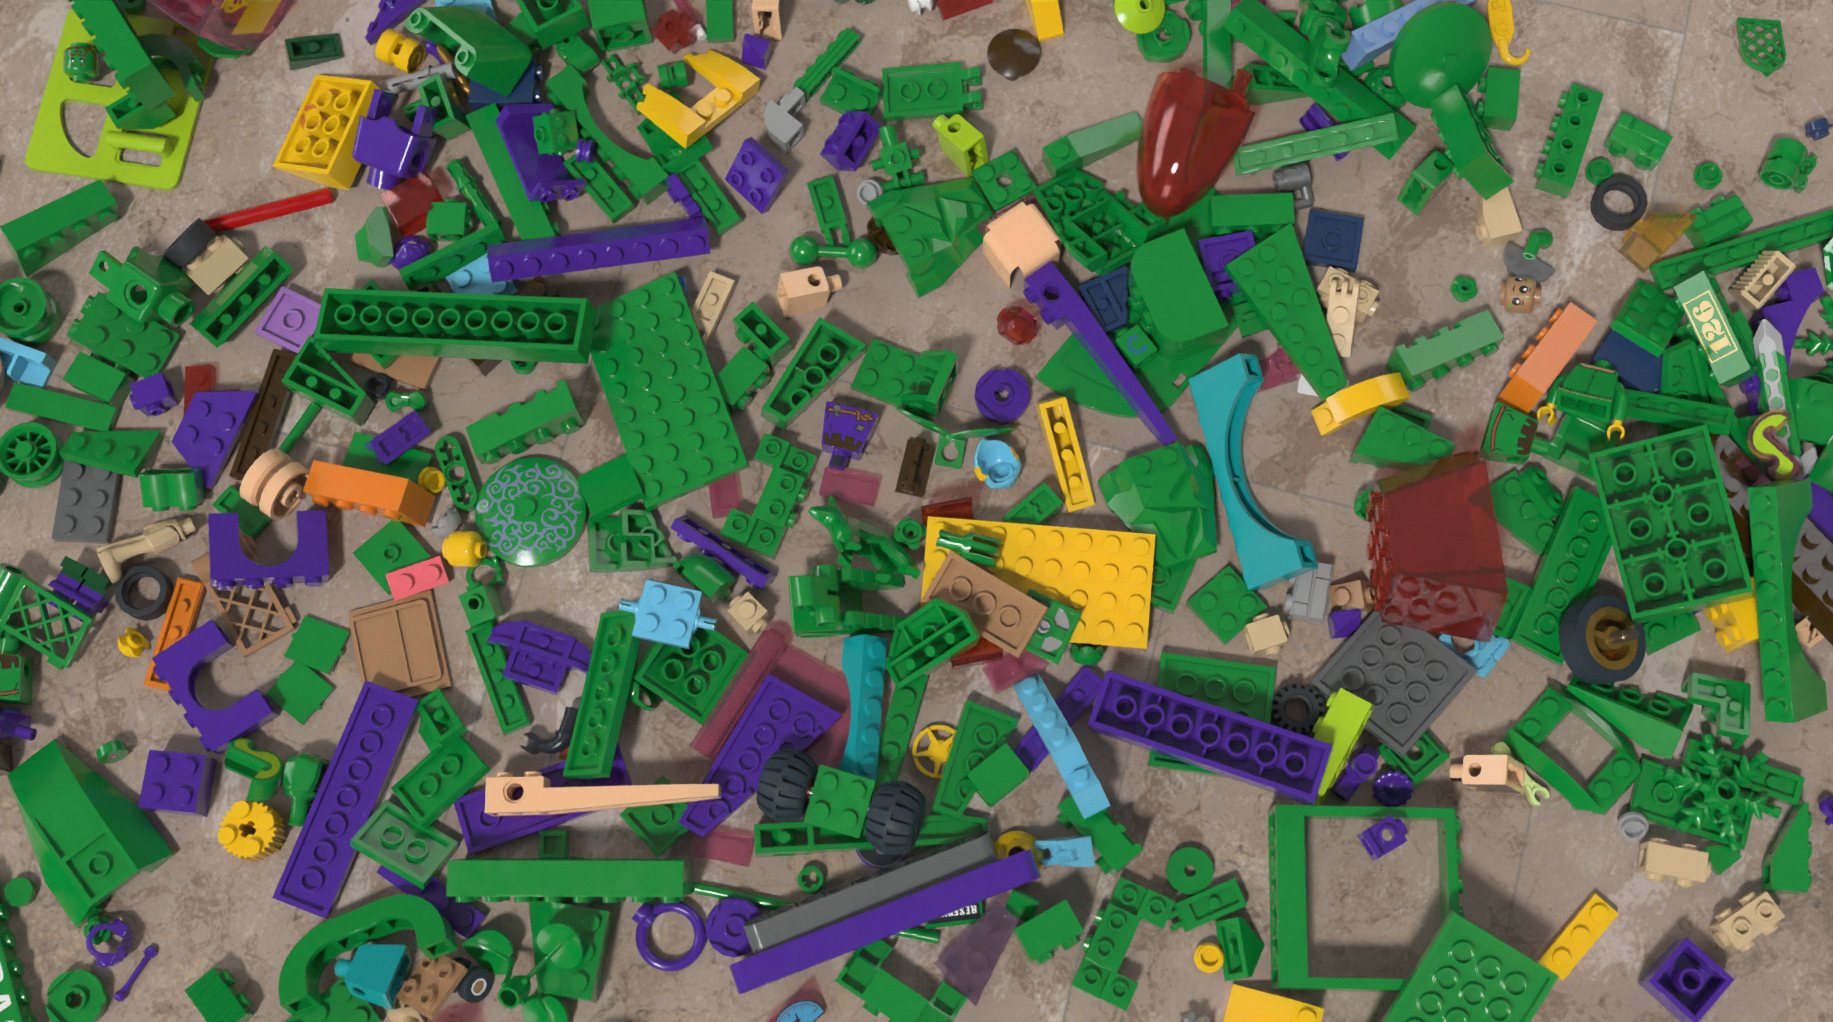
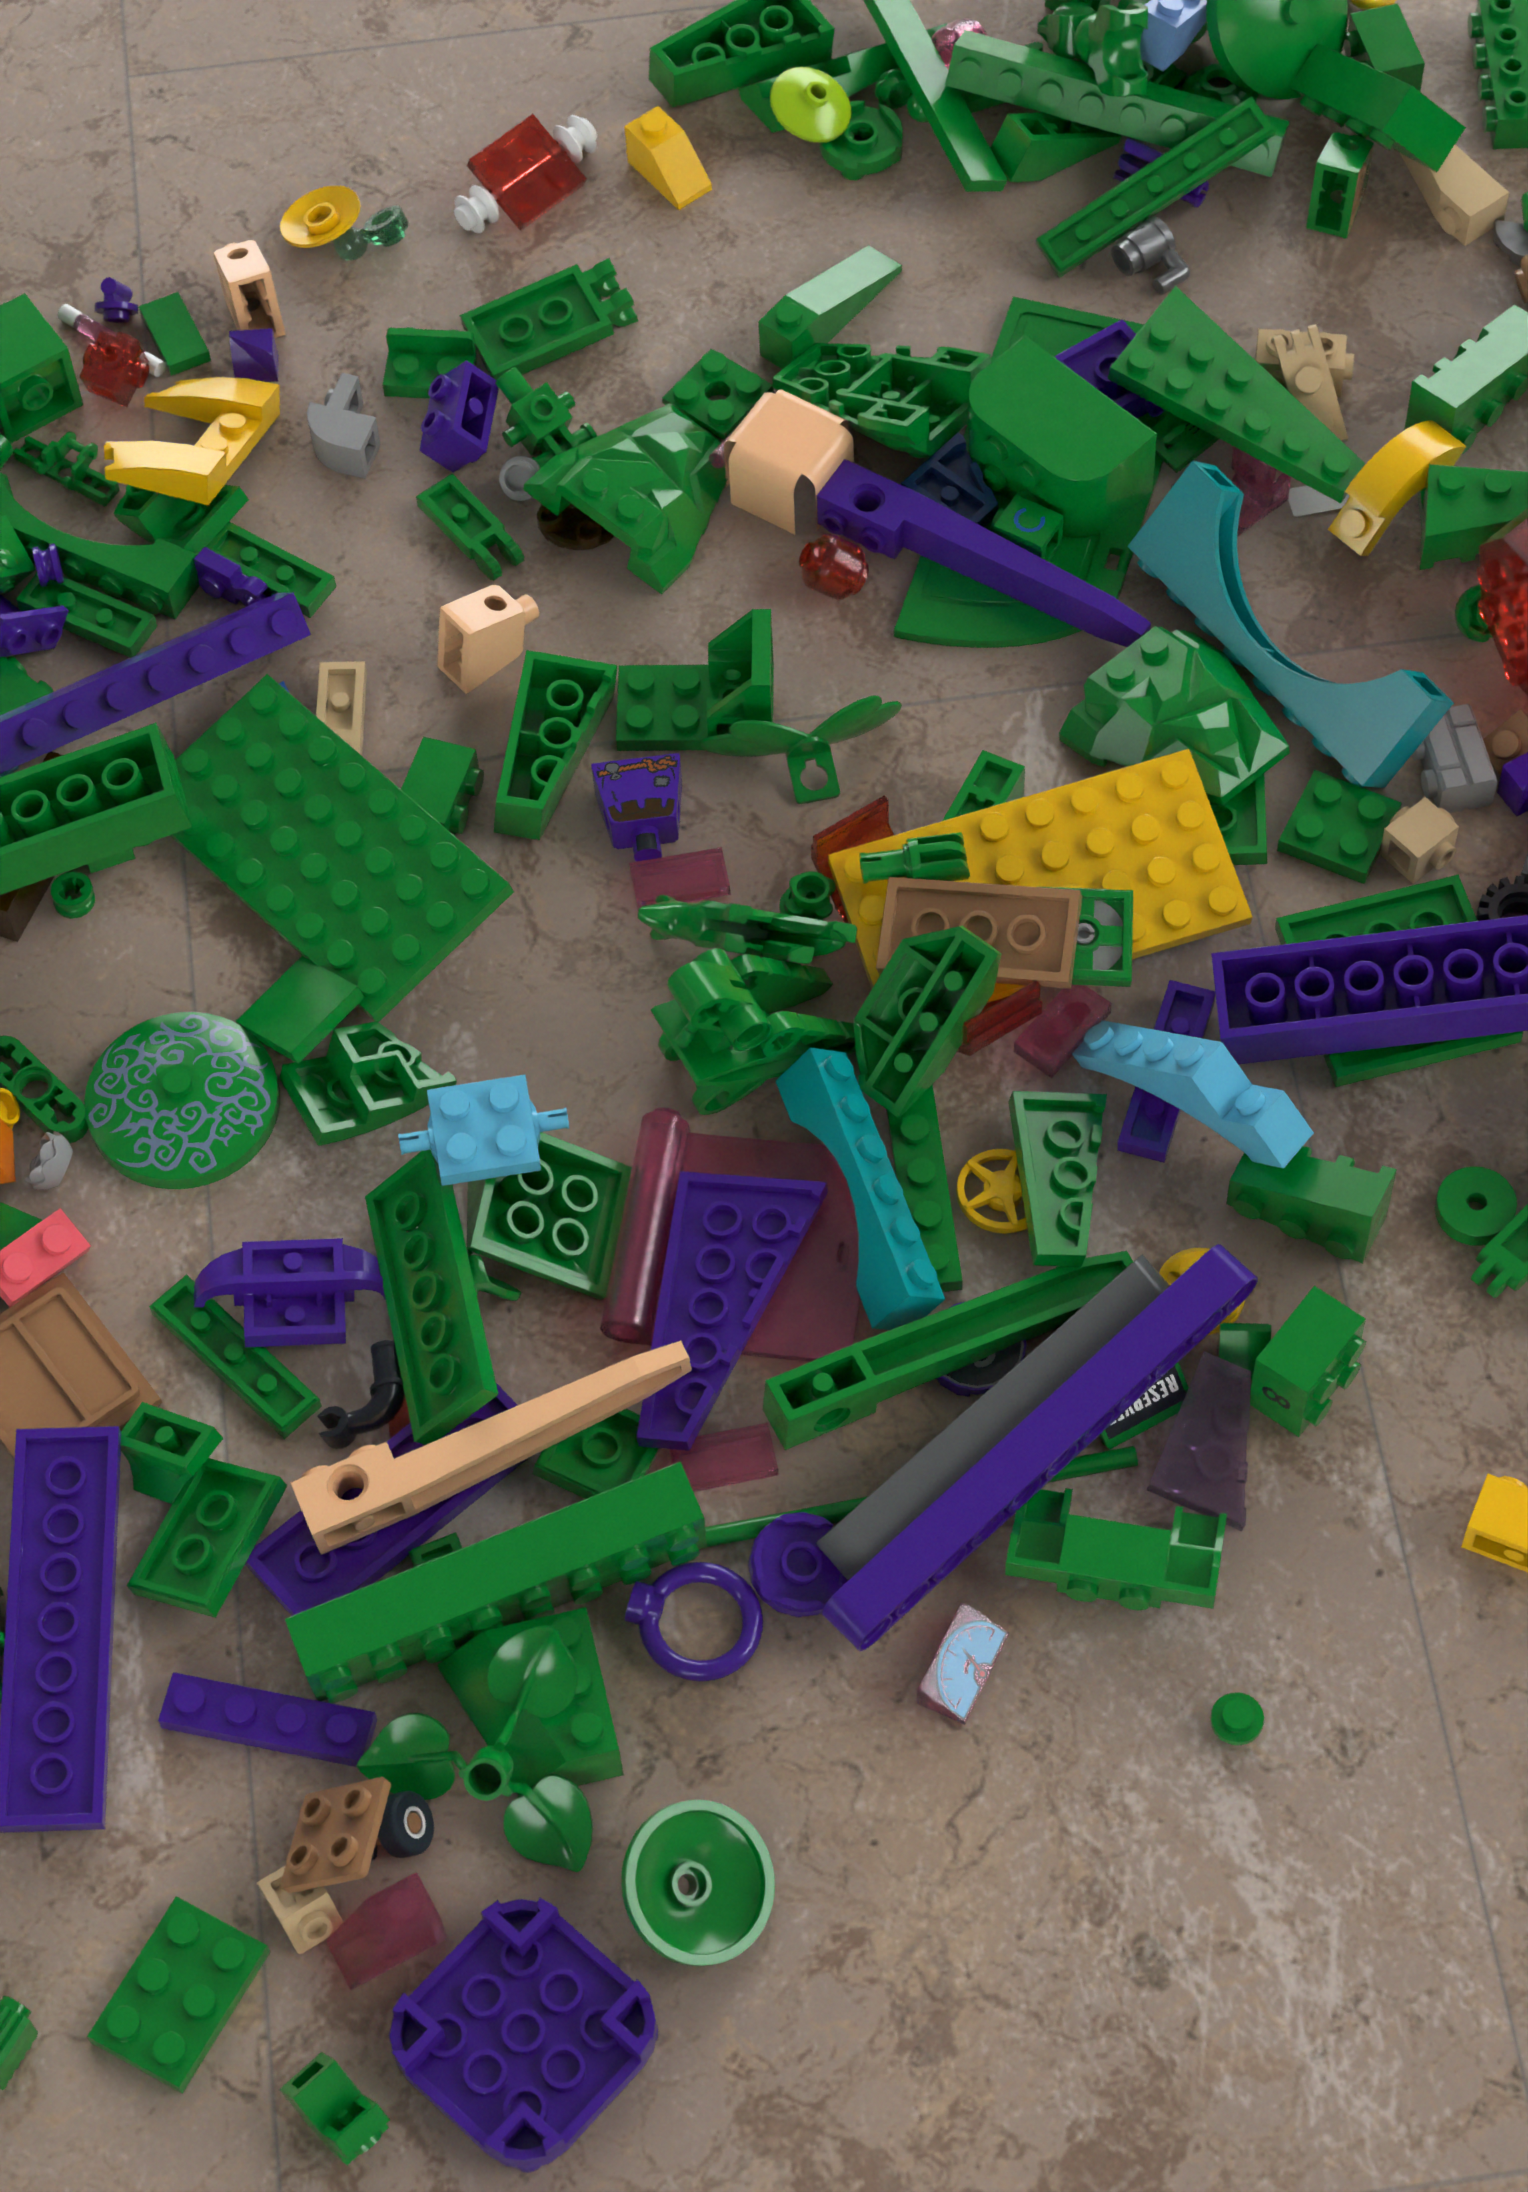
camera: 25 degrees left, 15 degrees down
(312, 953) = (171, 1809): green arch -> none
(376, 972) = (228, 1866): teal torso -> none
(403, 845) = (189, 1653): green plate -> none
(464, 548) = (97, 1183): yellow head -> none
(481, 603) = (174, 1258): green brick -> none
(494, 563) = (170, 1214): green piece -> none
(526, 424) = (121, 969): green wedge -> none
(666, 75) = (140, 425): green wheel -> none
(705, 575) = (514, 1056): green brick -> none
(715, 546) = (502, 1033): dark purple plate -> none
(724, 496) = (487, 963): clear pink tile -> none
(748, 614) = (607, 1105): tan brick -> none
(756, 175) = (335, 508): dark purple plate -> none
(761, 334) = (444, 711): green brick -> none
(779, 500) = (577, 976): green bracket -> none
(806, 872) = (876, 1443): green bush -> none
(834, 56) = (369, 339): green piece -> none
(841, 801) = (891, 1287): black plate -> none
(860, 252) = (544, 559): green piece -> none
(915, 467) = (769, 813): dark brown hinge -> none
(961, 143) = (631, 362): lime torso -> none
(996, 464) = (895, 758): medium azure hair -> none
(998, 775) = (1117, 1177): green piece -> none
(1002, 411) = (859, 648): dark purple plate -> none
(1013, 53) = (649, 233): dark brown dish -> none
(1065, 452) = (987, 704): yellow slope -> none
(1067, 851) = (1279, 1232): medium azure hinge -> none
(1086, 653) = (1163, 964): green plate -> none
(1110, 942) = (1407, 1353): green bracket -> none
(1189, 138) = (972, 222): clear red windscreen -> none
(1255, 212) = (1098, 302): green brick -> none
(1332, 240) = (1244, 299): dark blue plate -> none
(1460, 294) = (1463, 302): green plate -> none

